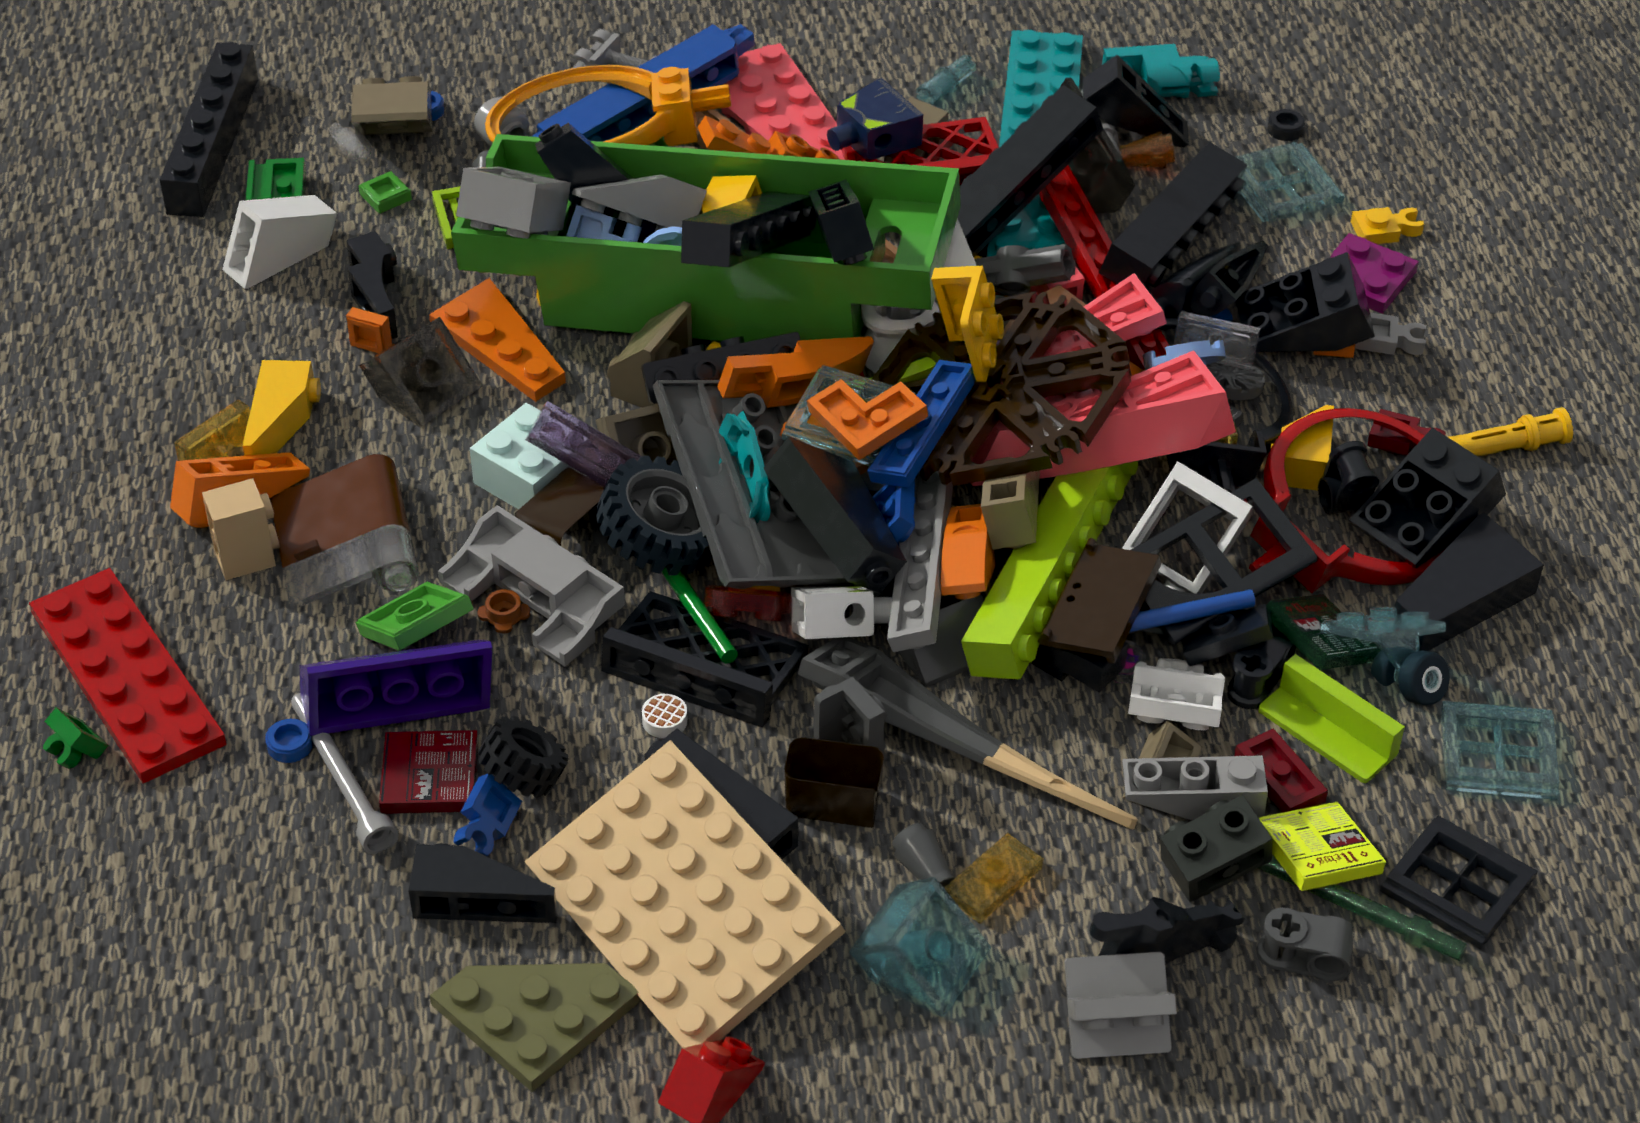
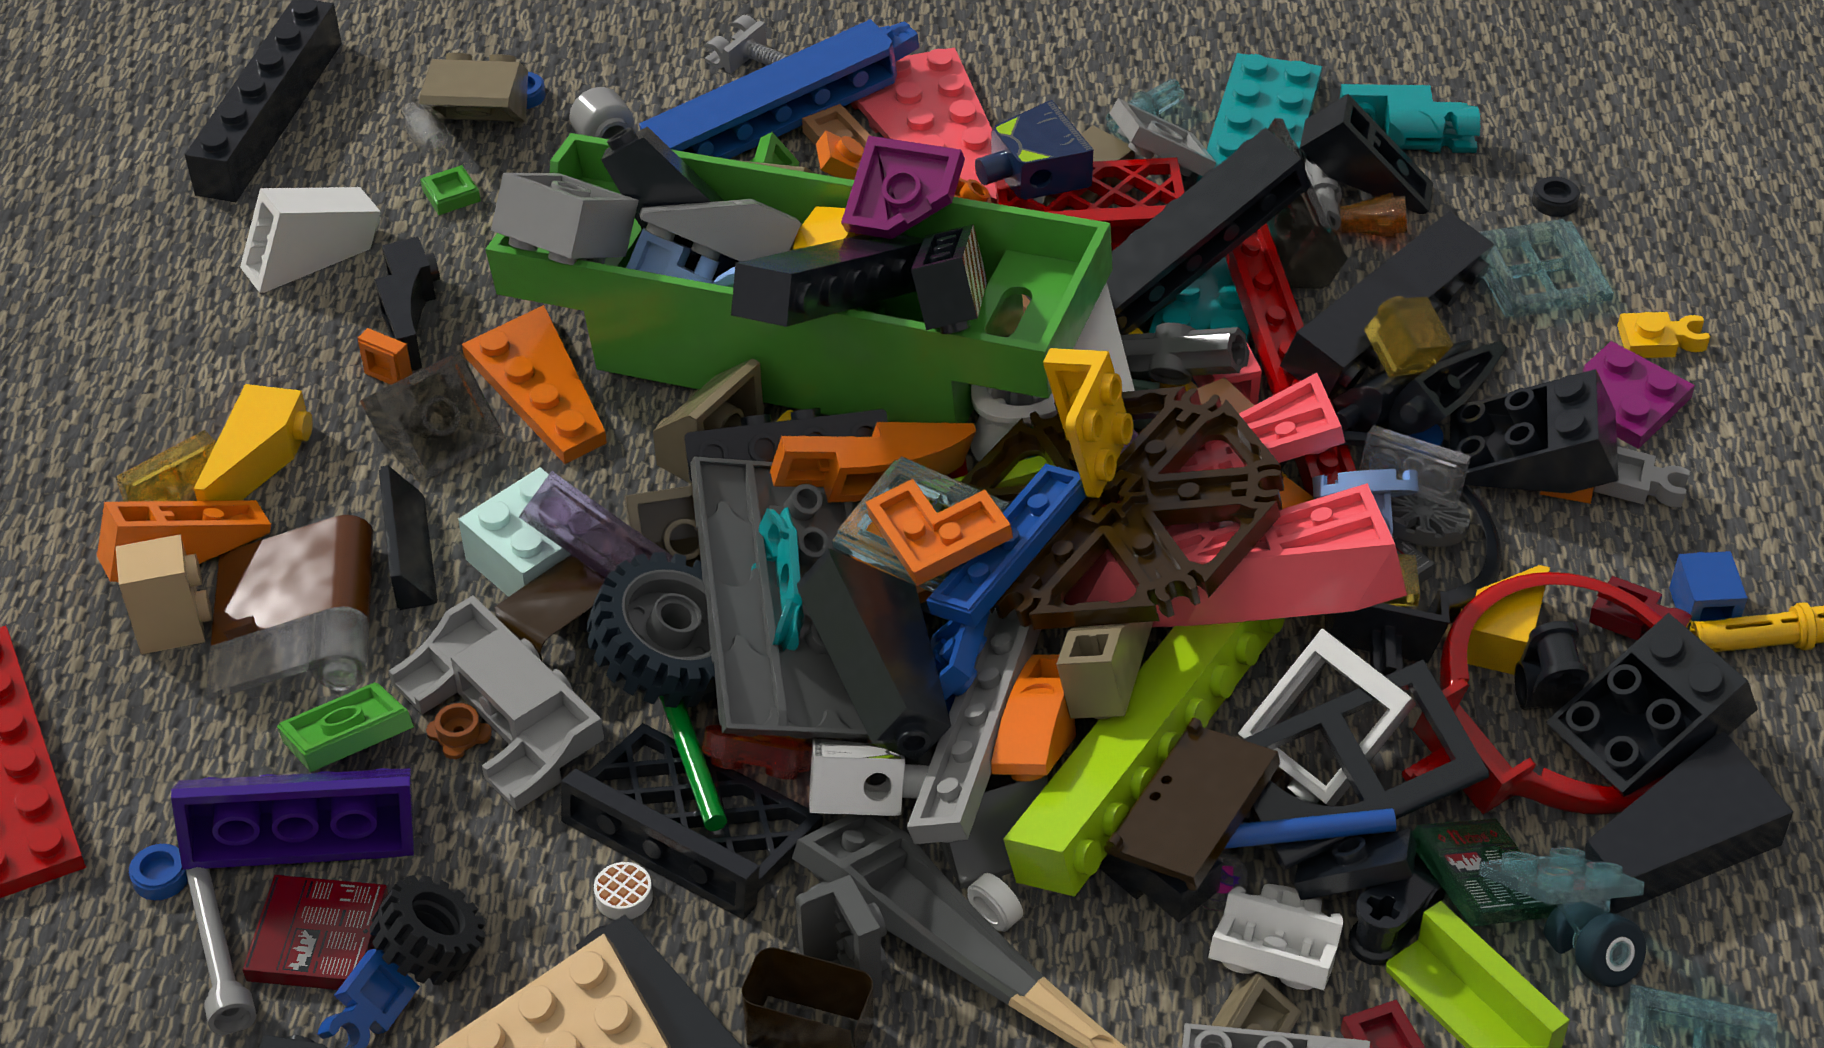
camera: 10 degrees right, 0 degrees up
(276, 178) = (326, 164): green plate -> none
(423, 472) = (407, 541): none -> black slope
(668, 90) = (796, 105): light orange brick -> none
(785, 153) = (900, 186): none -> magenta plate
(957, 691) = (995, 902): none -> white tile
(964, 102) = (1157, 136): none -> light grey plate
(1198, 239) = (1408, 336): none -> clear yellow brick
(1453, 409) = (1708, 586): none -> blue brick

